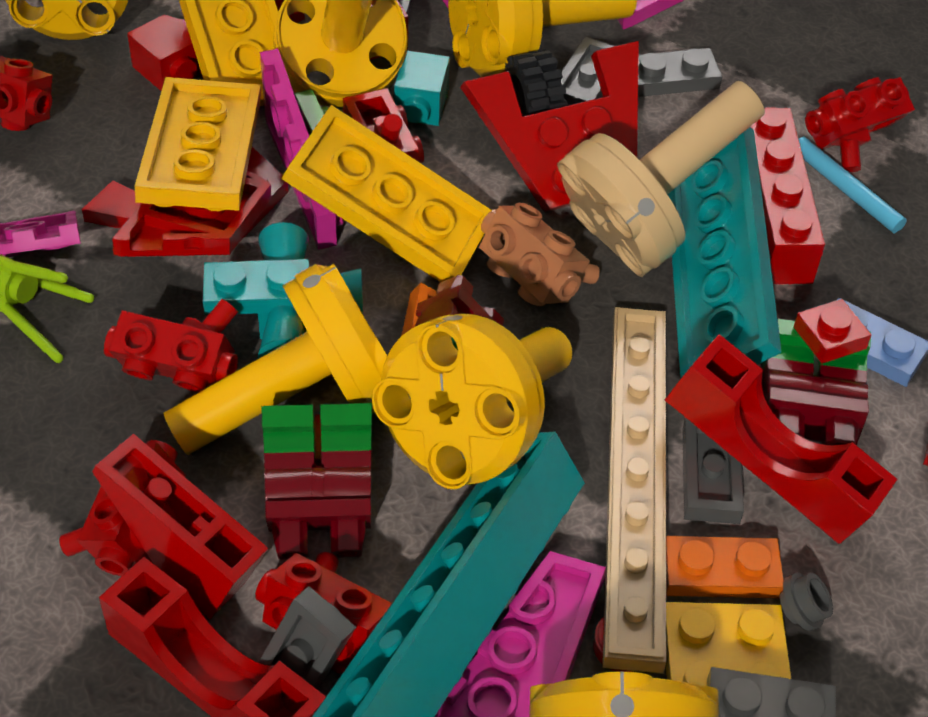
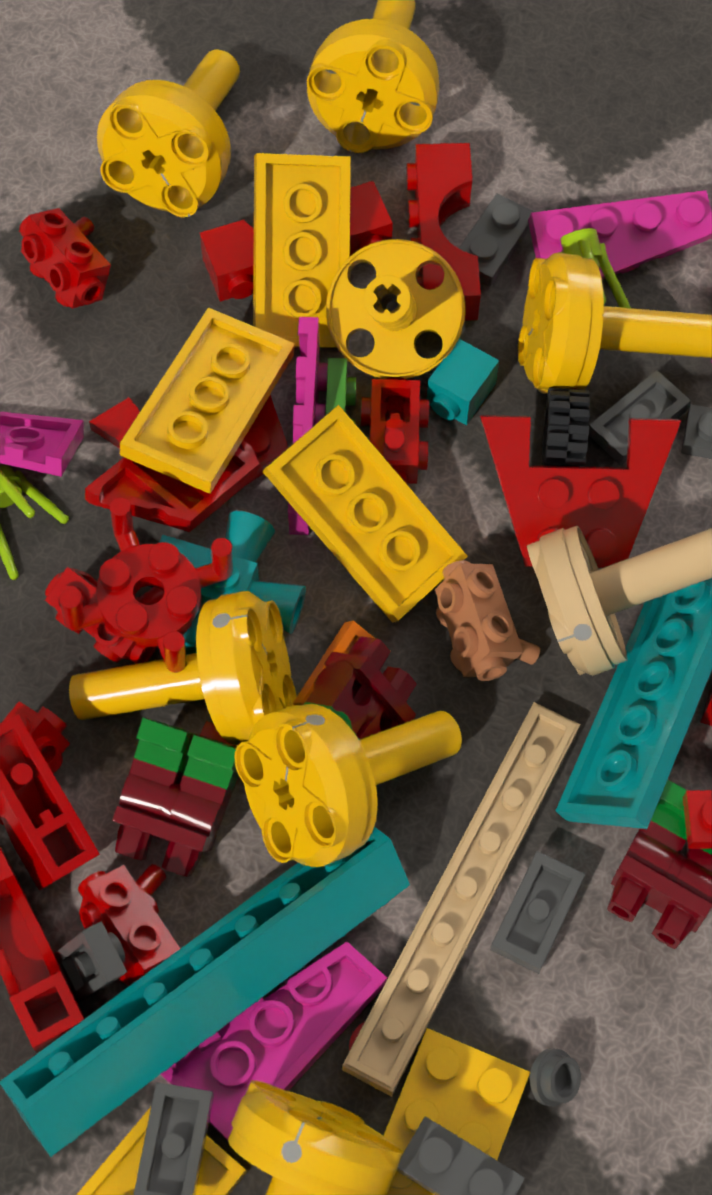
camera: 25 degrees right, 15 degrees up
(245, 323) = (141, 566): none -> red plate
(723, 567) = (500, 1011): orange plate -> none
(826, 483) = (620, 962): red arch -> none

